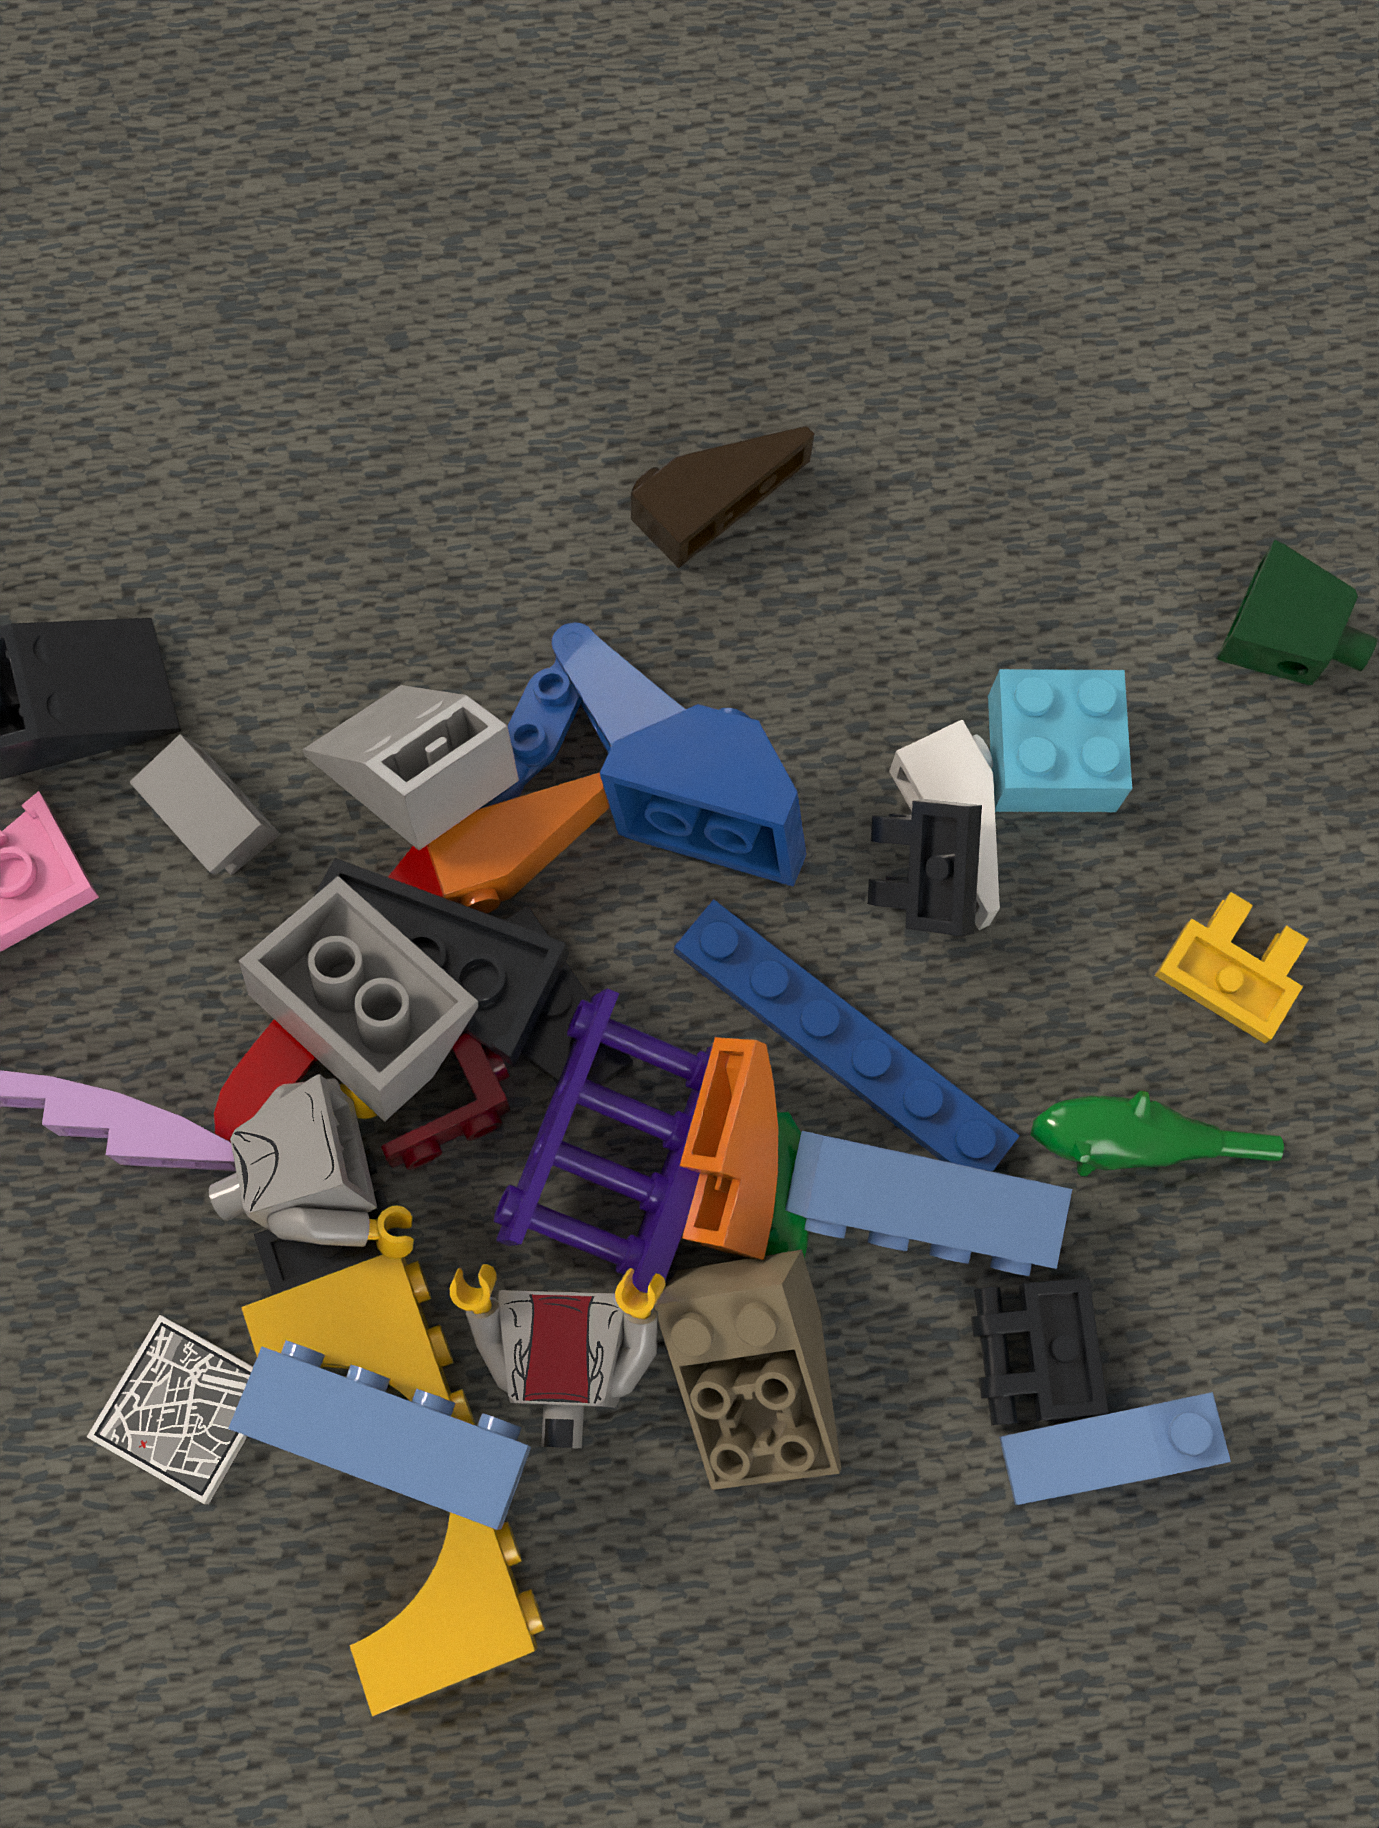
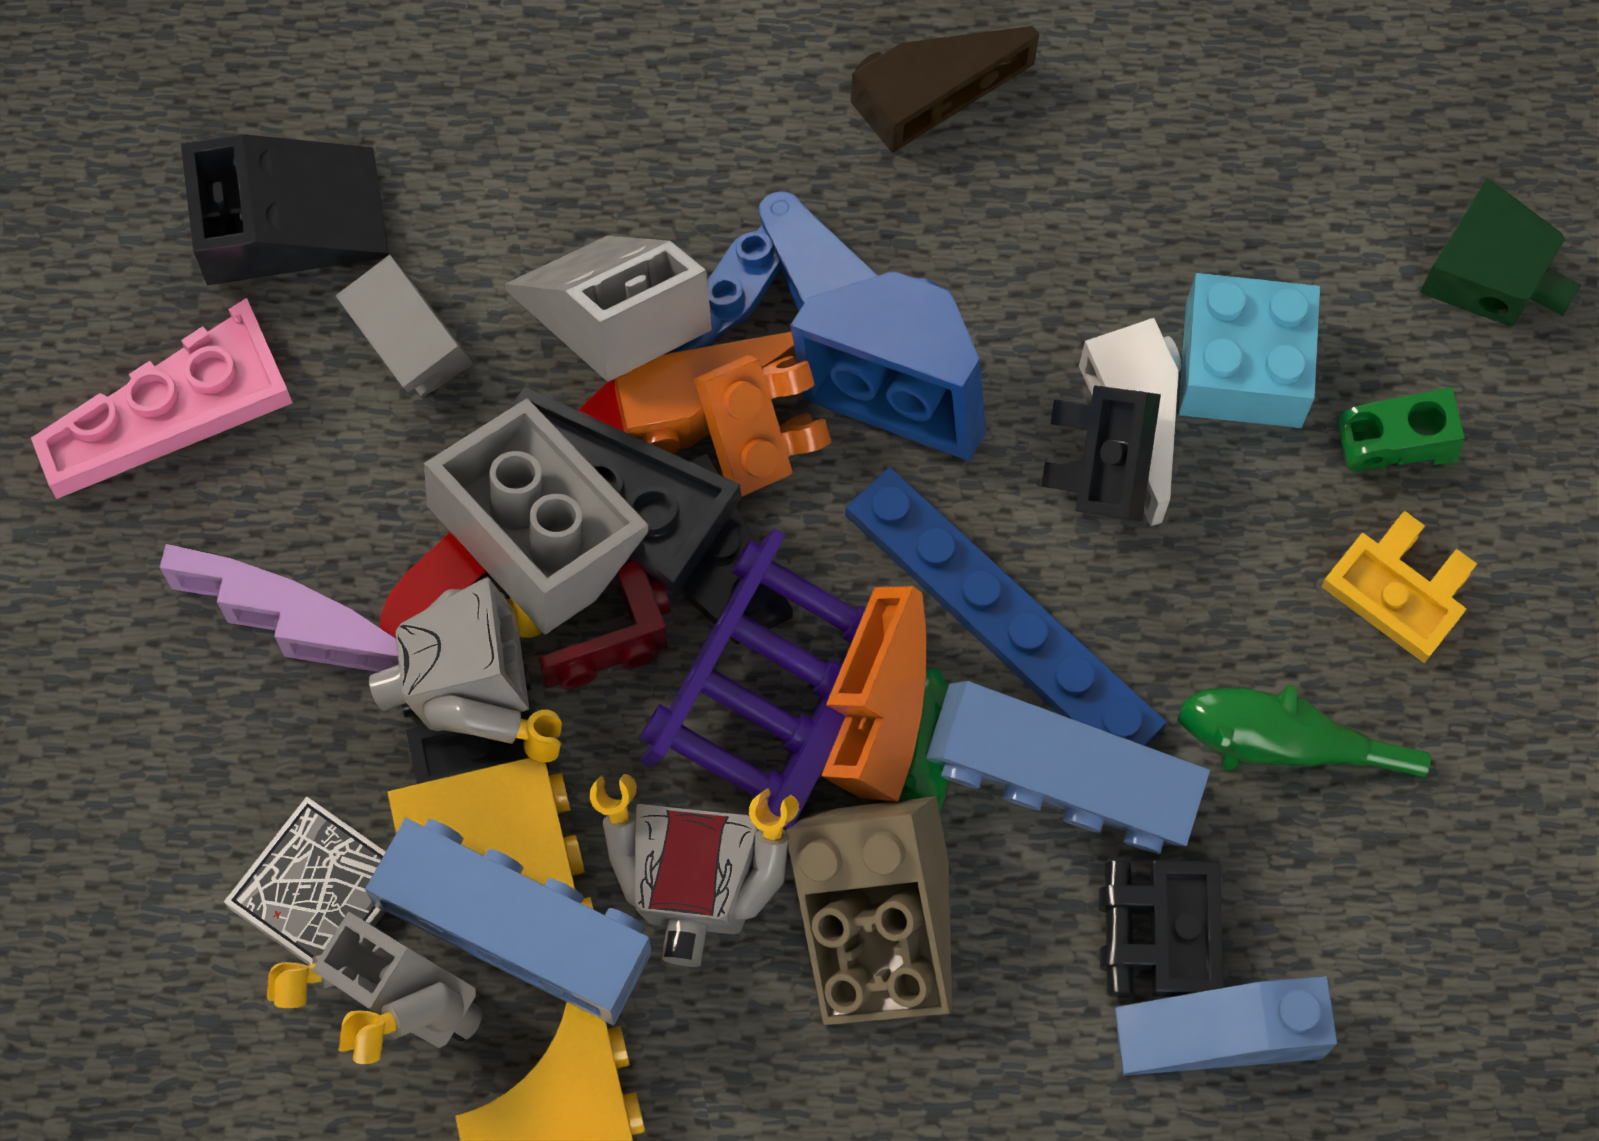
camera: 10 degrees right, 5 degrees down
(266, 1517) = (388, 978): none -> light grey torso
(562, 873) = (744, 423): none -> orange plate
(1219, 808) = (1402, 431): none -> green leg

